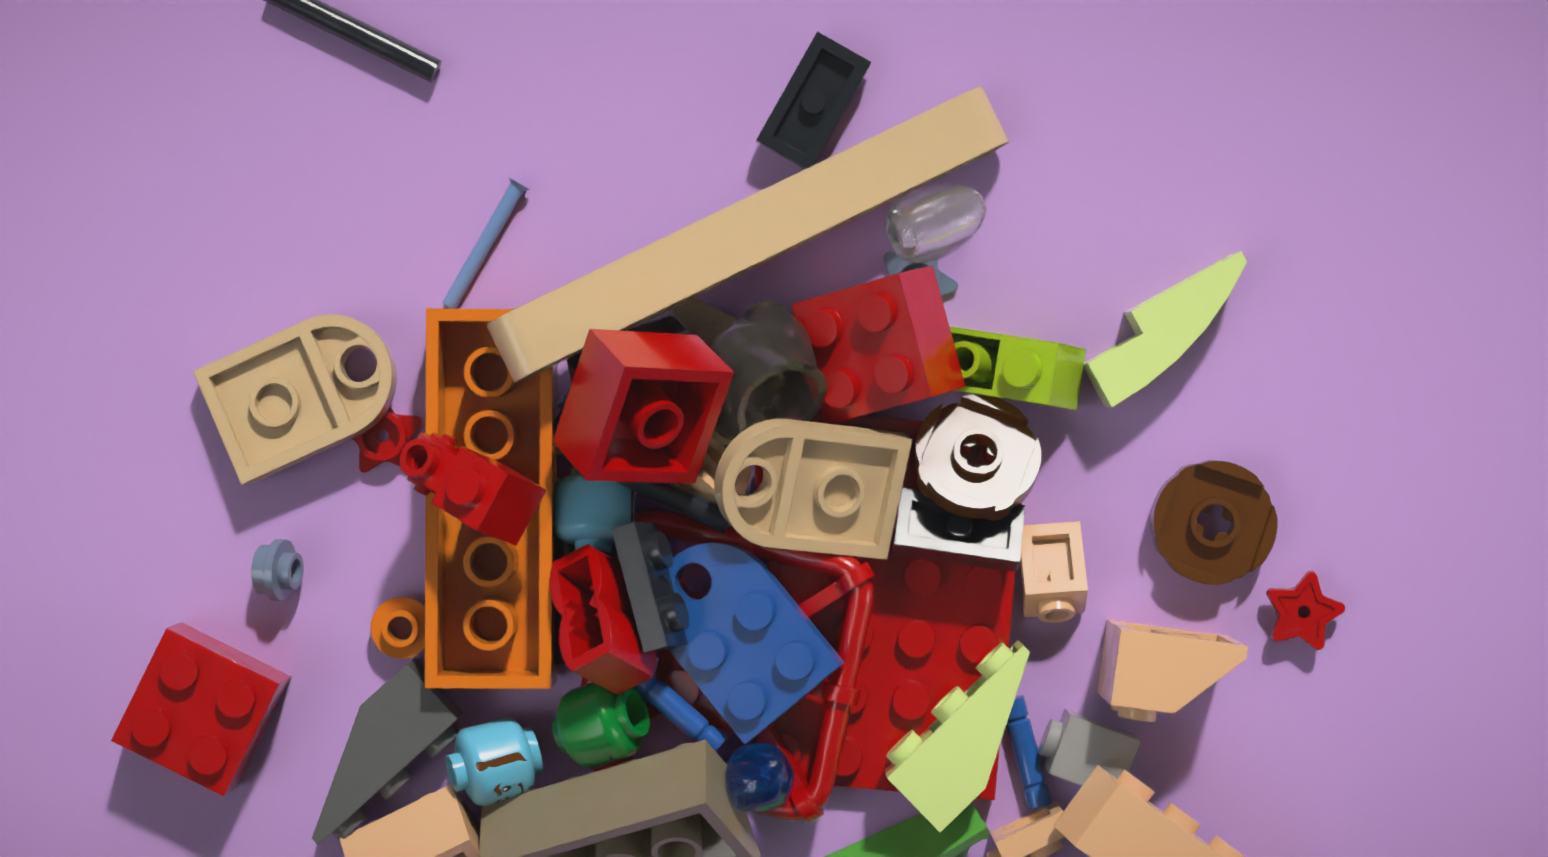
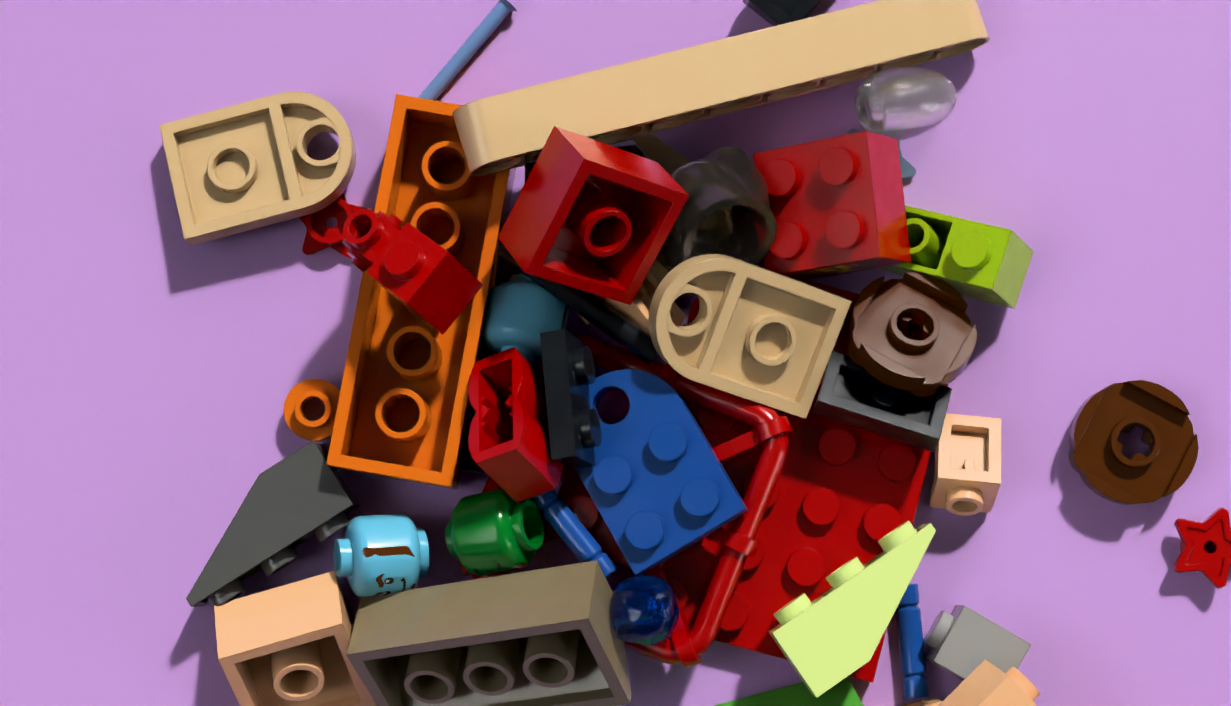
camera: 10 degrees right, 5 degrees down
(201, 708) = (101, 453): red brick -> none
(277, 570) = (203, 331): sand blue plate -> none
(1161, 667) = (1061, 571): light nougat slope -> none
(1163, 330) = (1110, 244): yellowish green slope -> none

